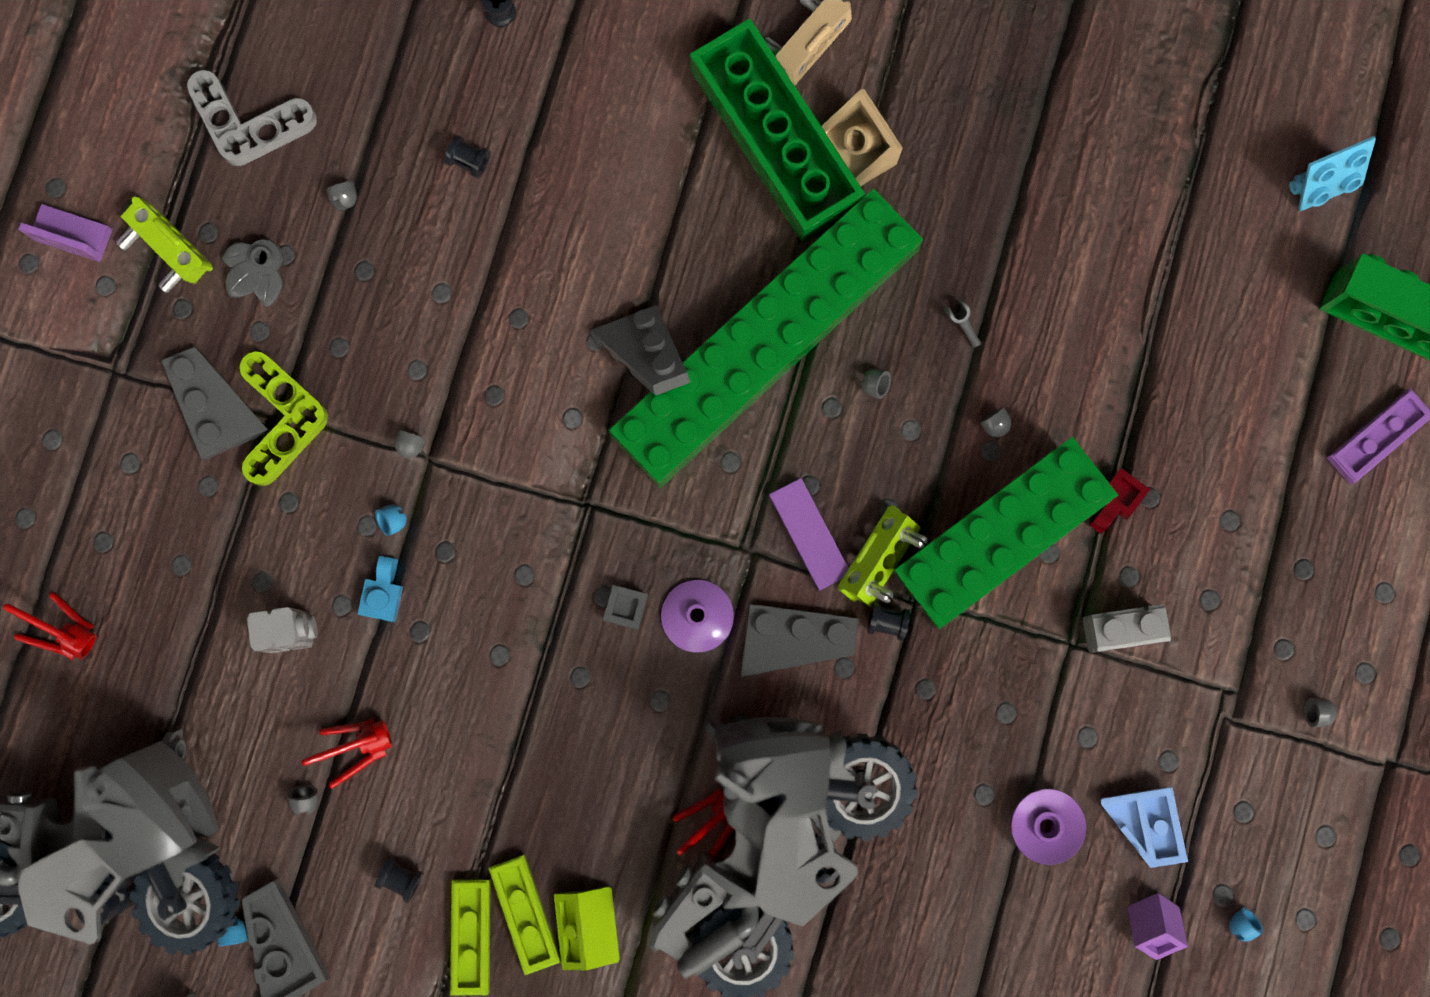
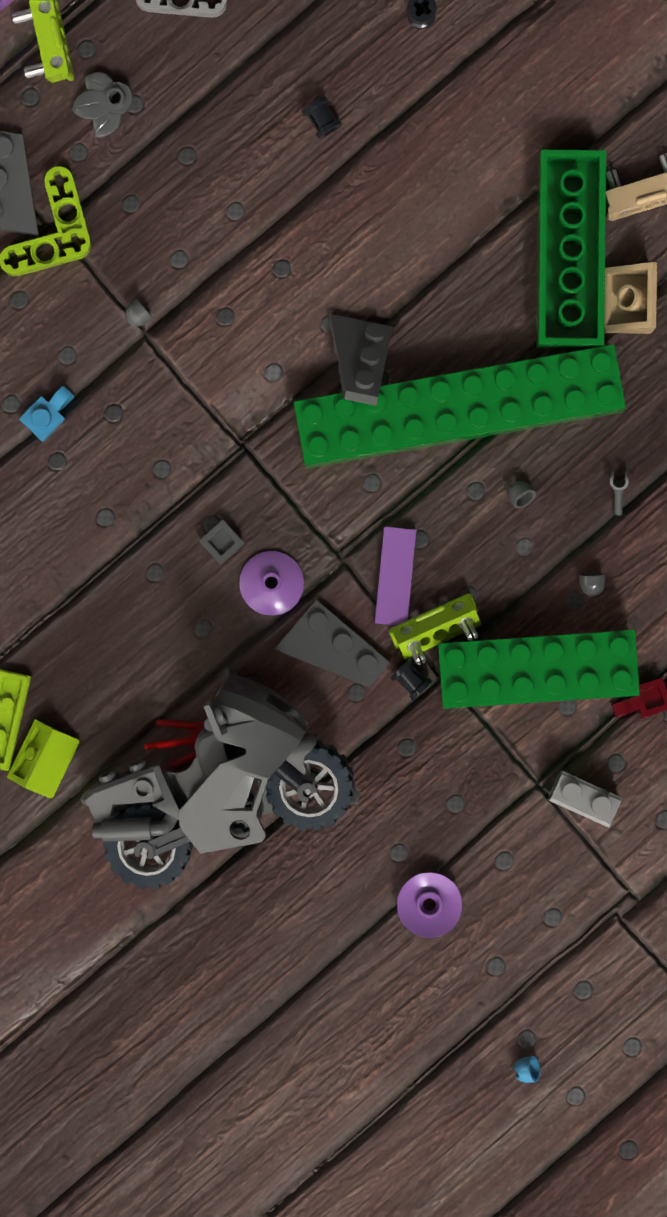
camera: 35 degrees right, 5 degrees up
(342, 195) = (206, 87): dark grey hinge -> none
(390, 519) = (87, 362): dark azure hinge -> none
(1150, 824) = (506, 952): light blue wing -> none
(1157, 926) = (461, 1028): medium lavender panel -> none

